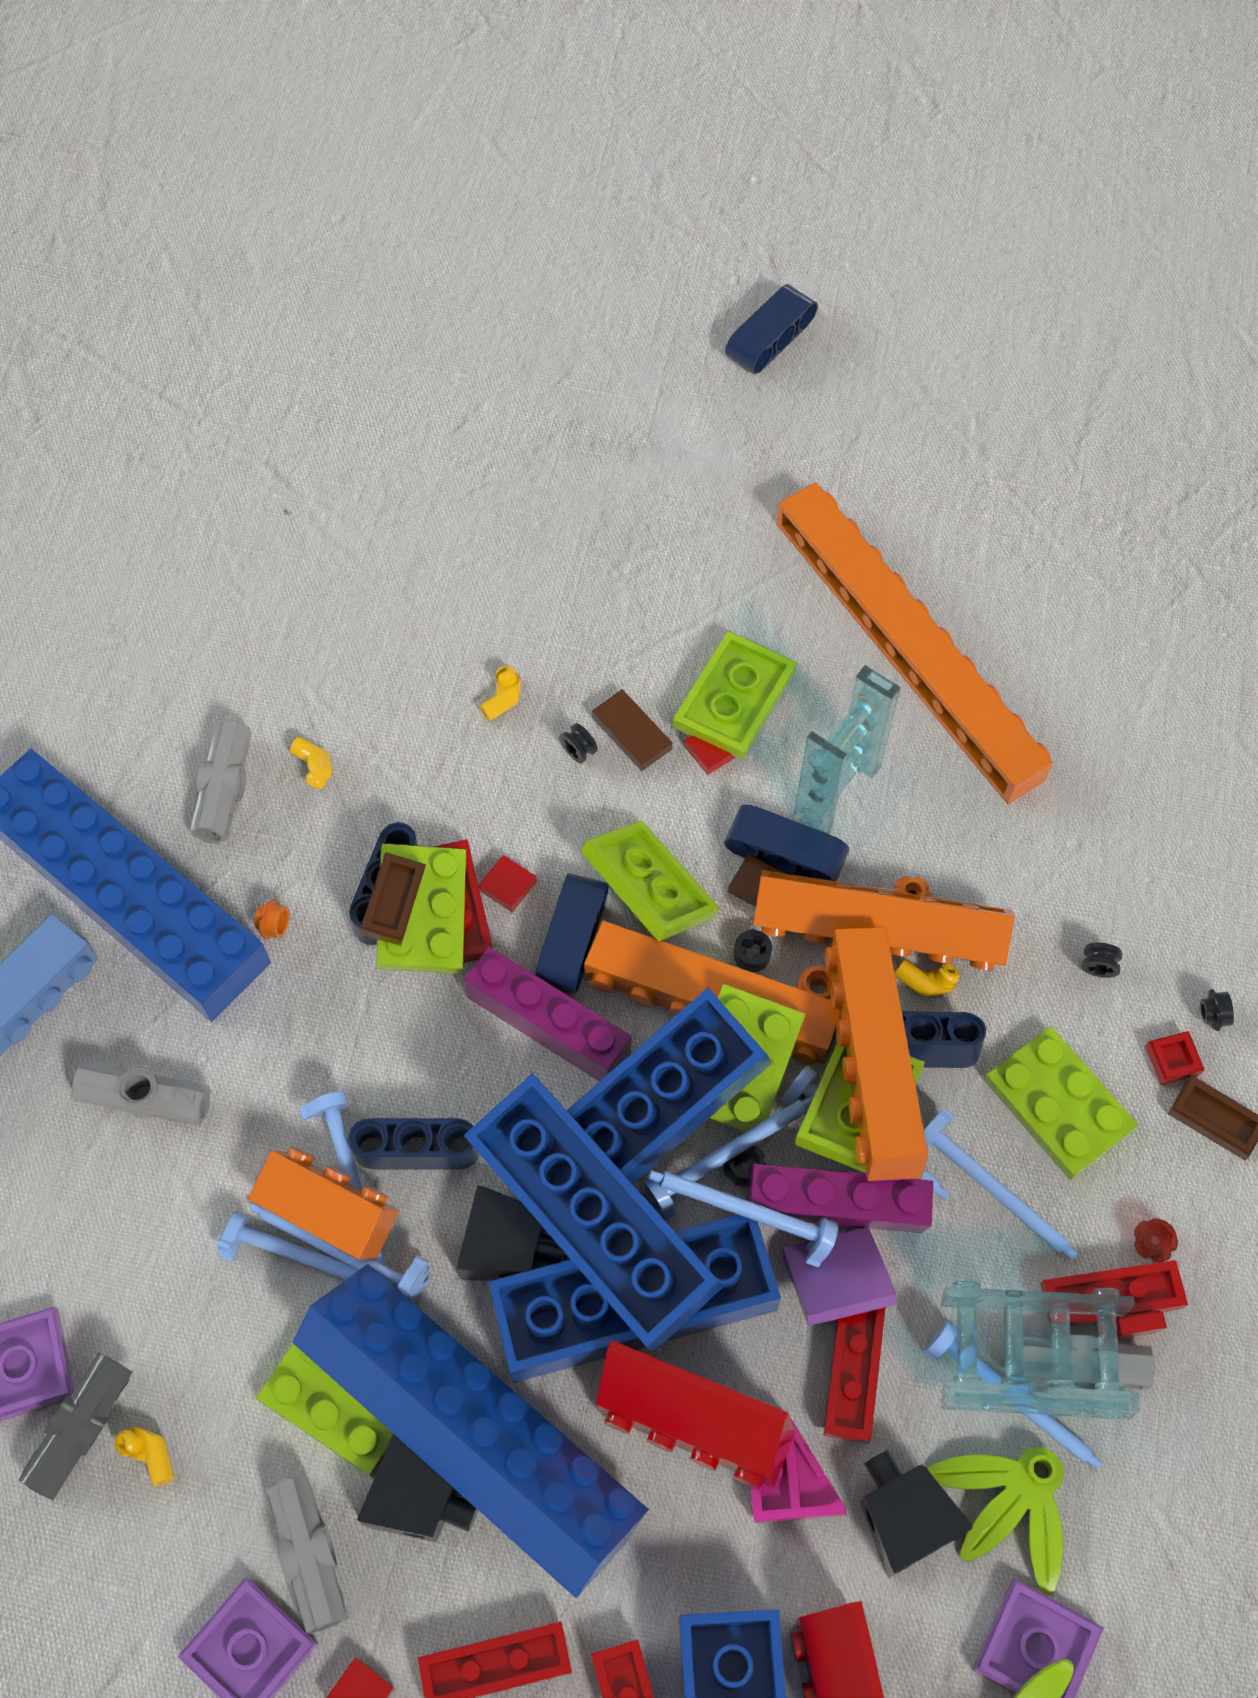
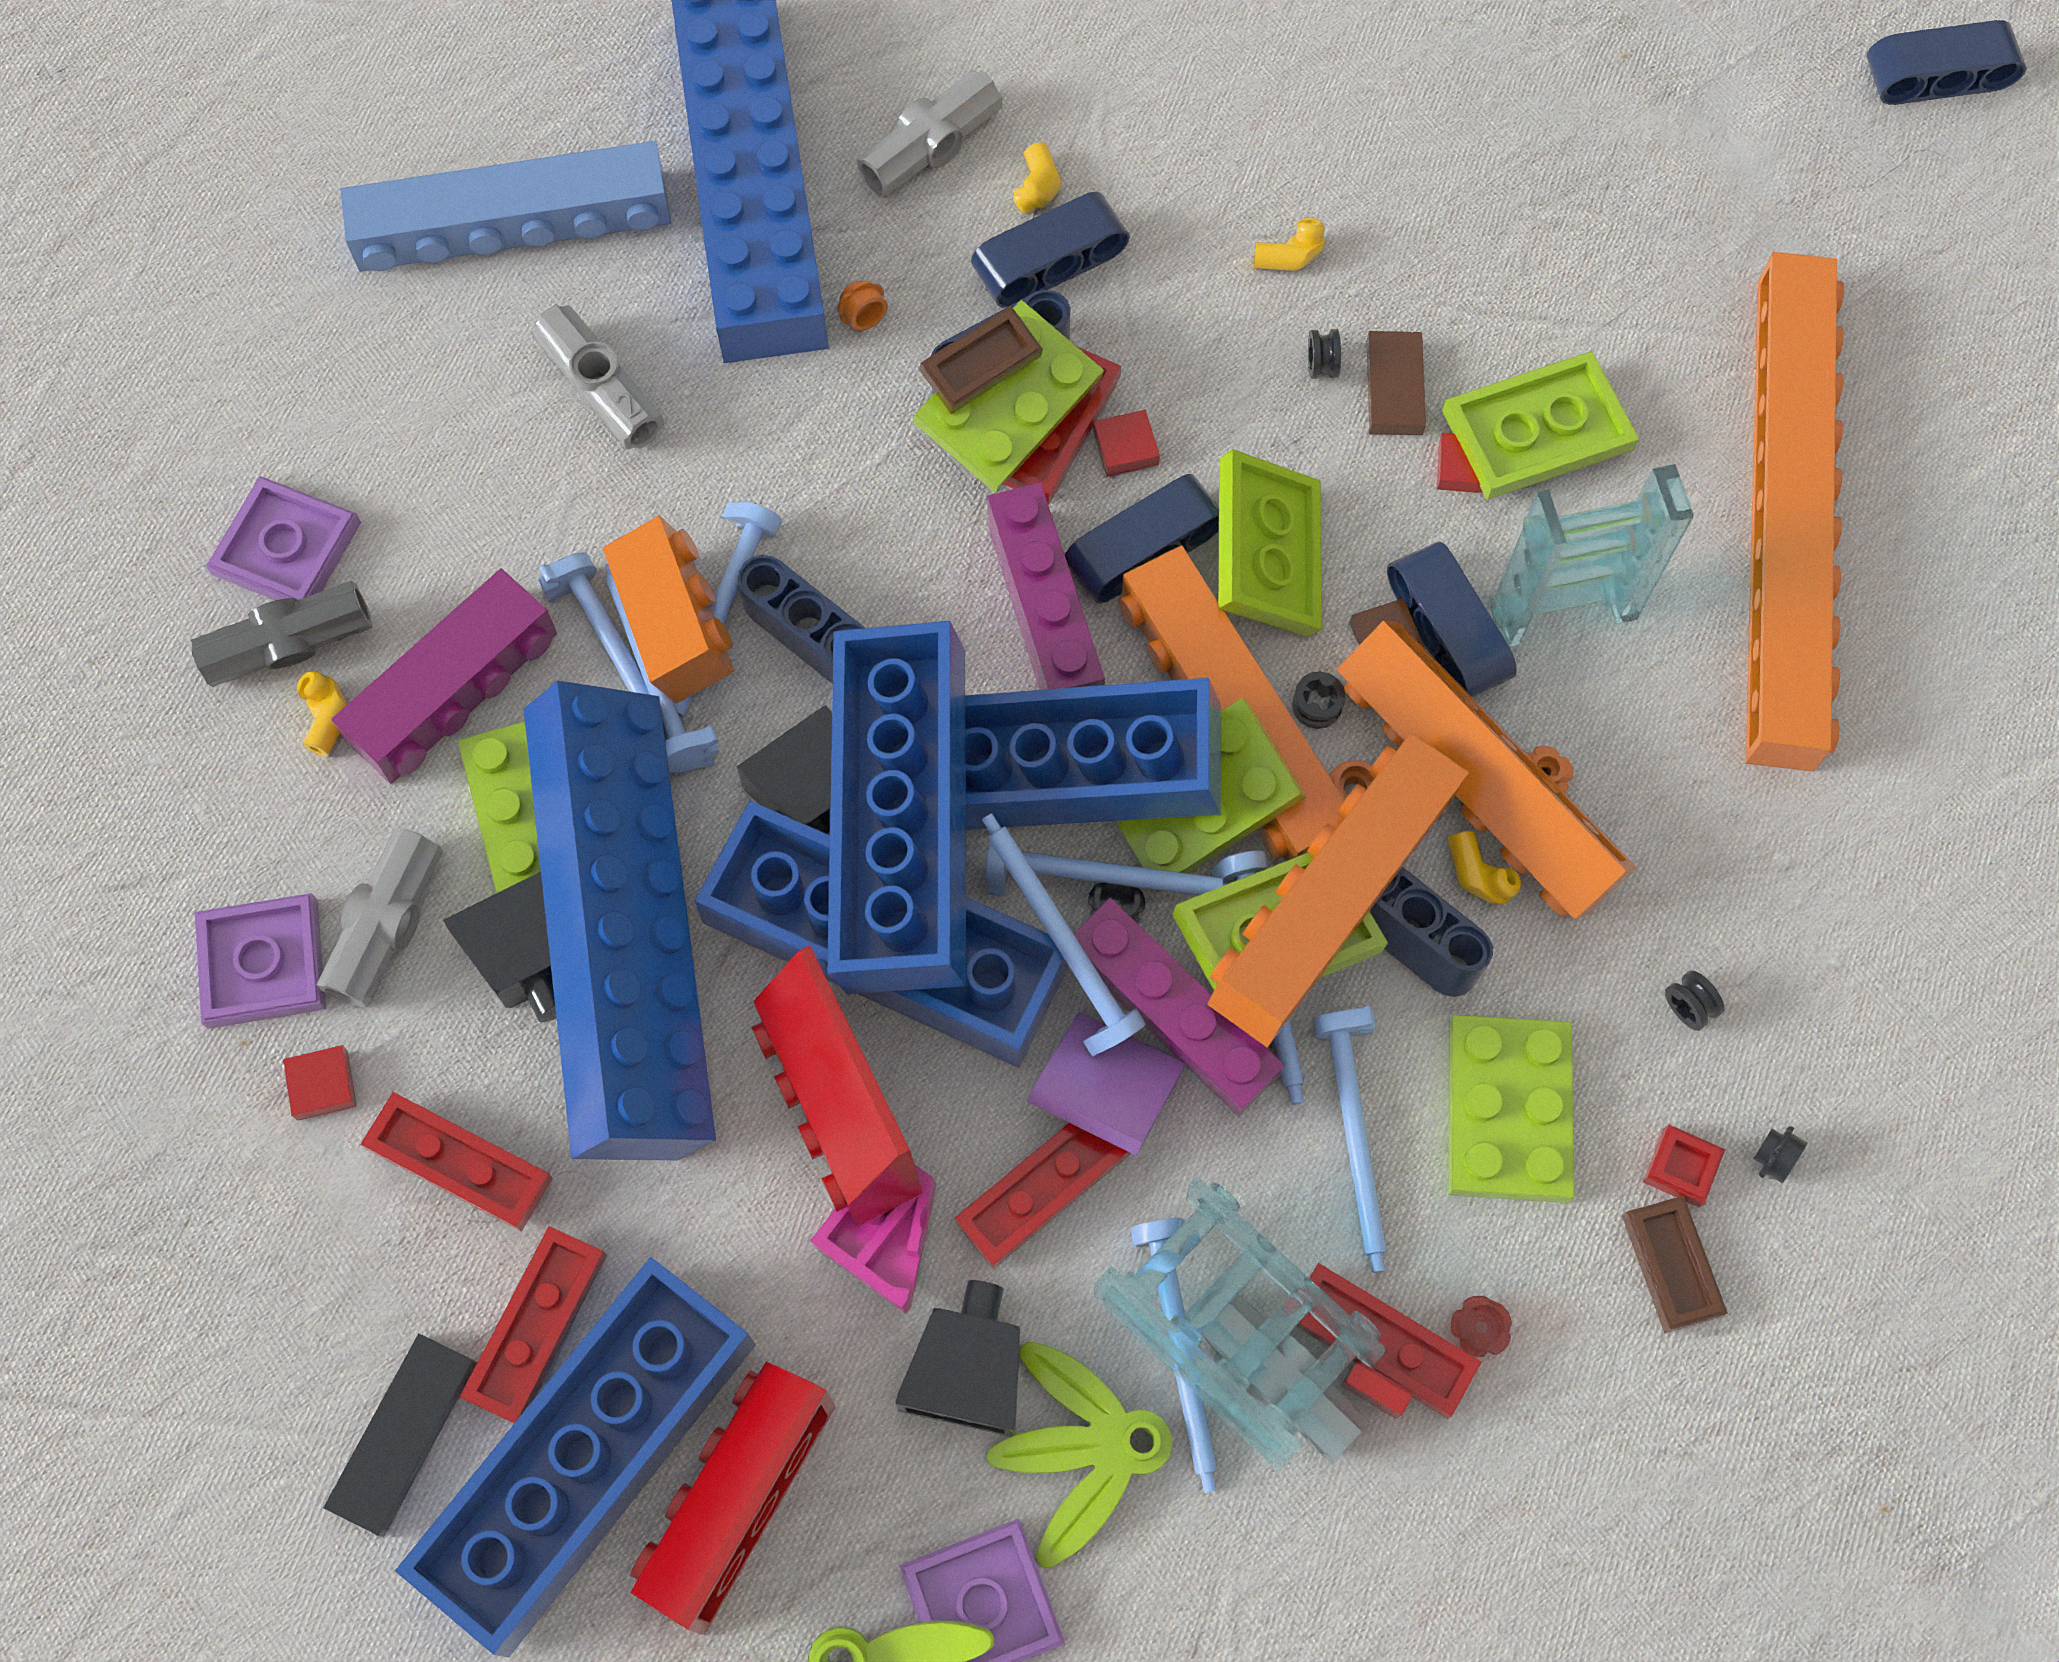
camera: 40 degrees right, 5 degrees up
(212, 1364) = (446, 676): none -> magenta brick
(360, 800) = (1050, 249): none -> dark blue beam

